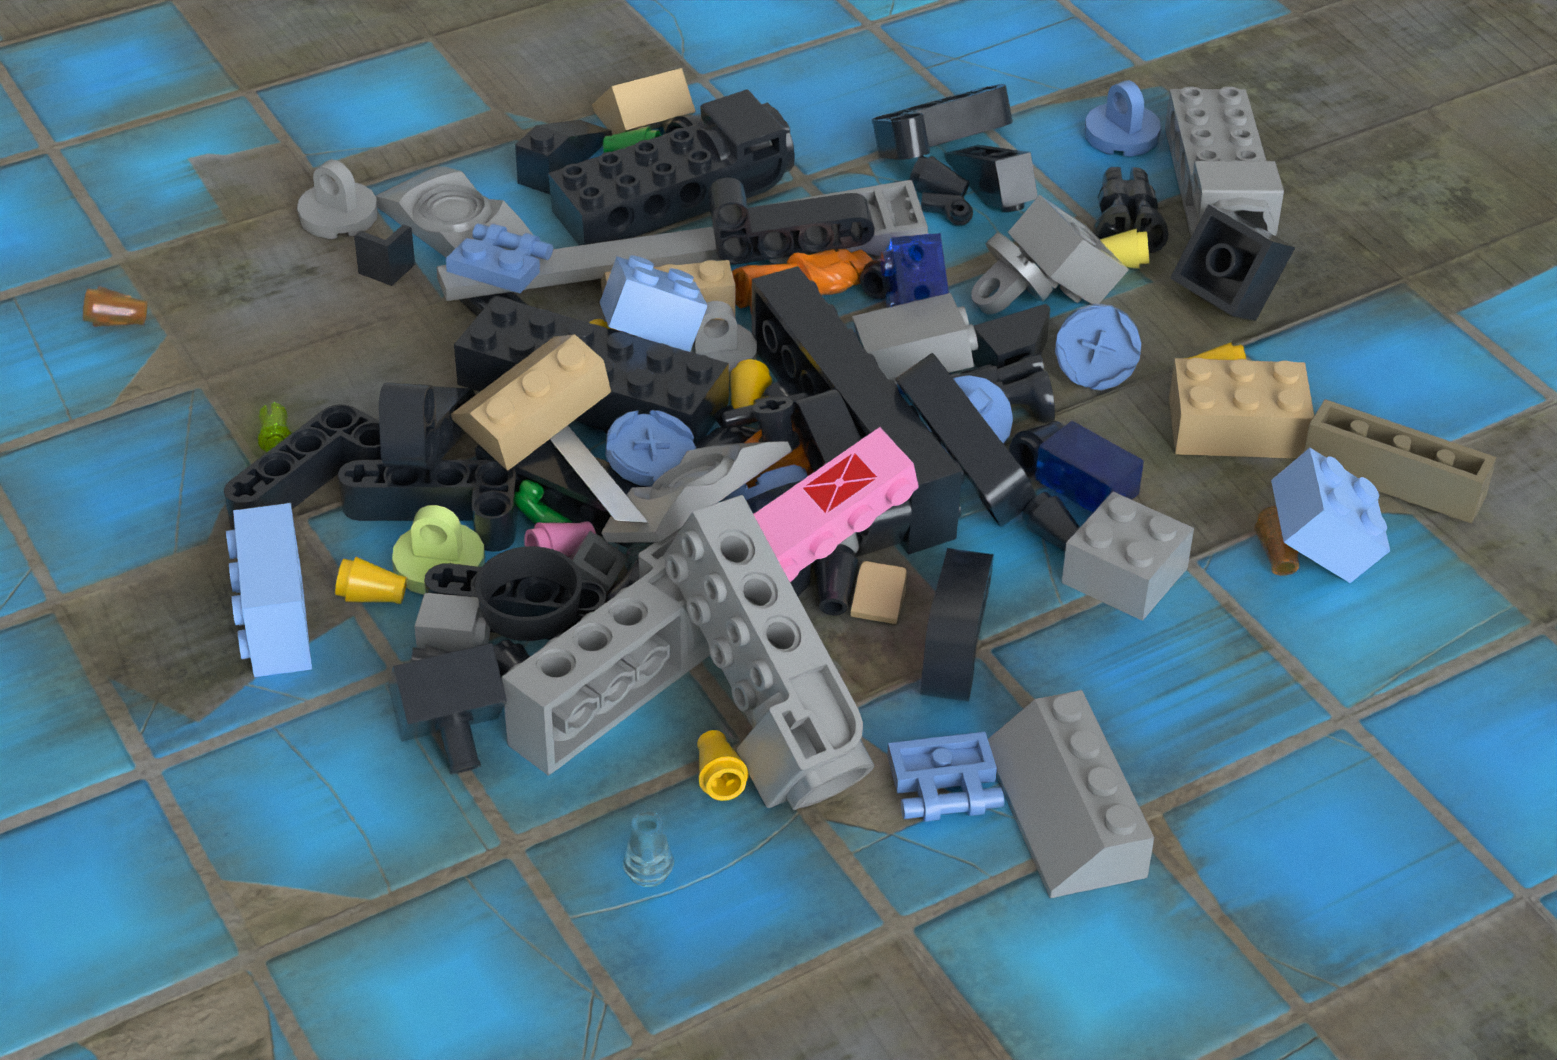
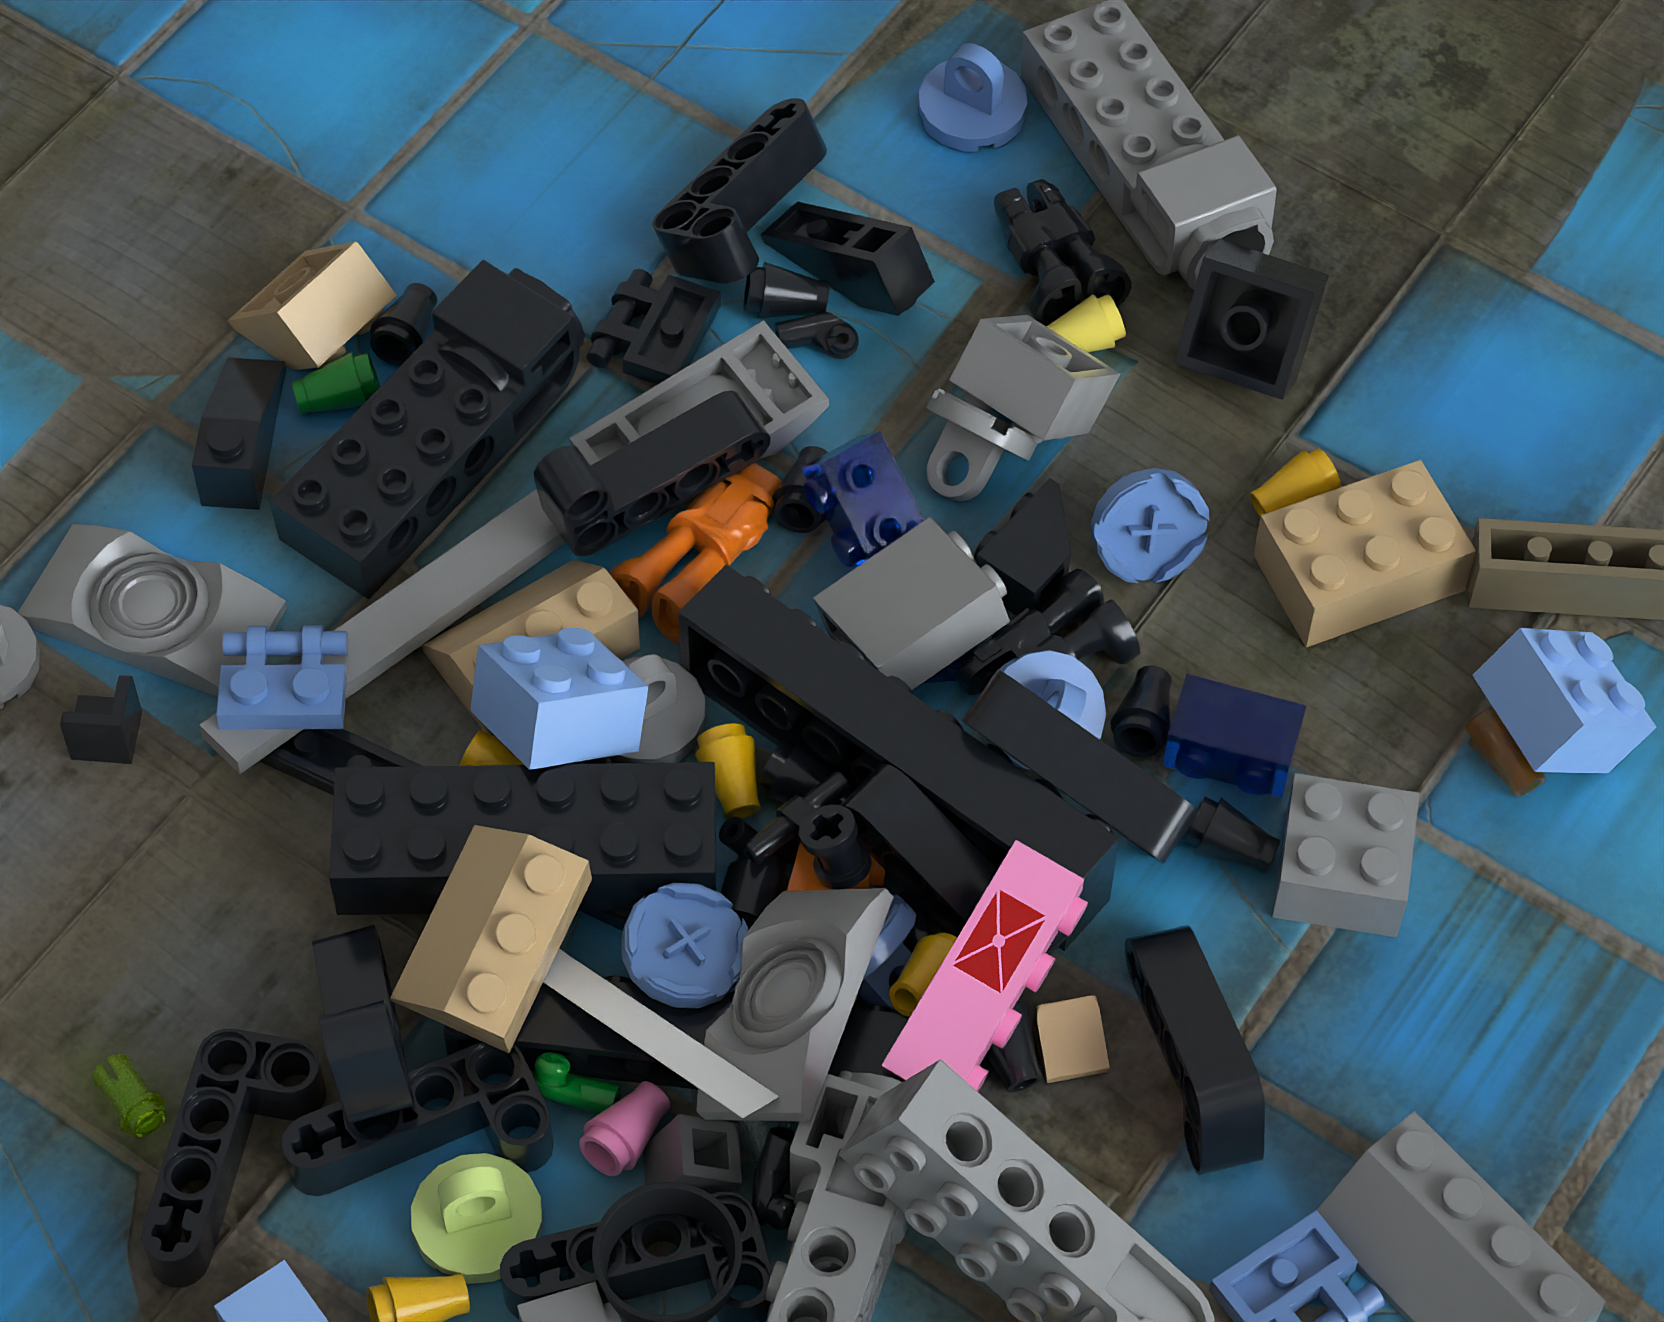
camera: 25 degrees left, 15 degrees up
(846, 170) = (669, 333): none -> black plate

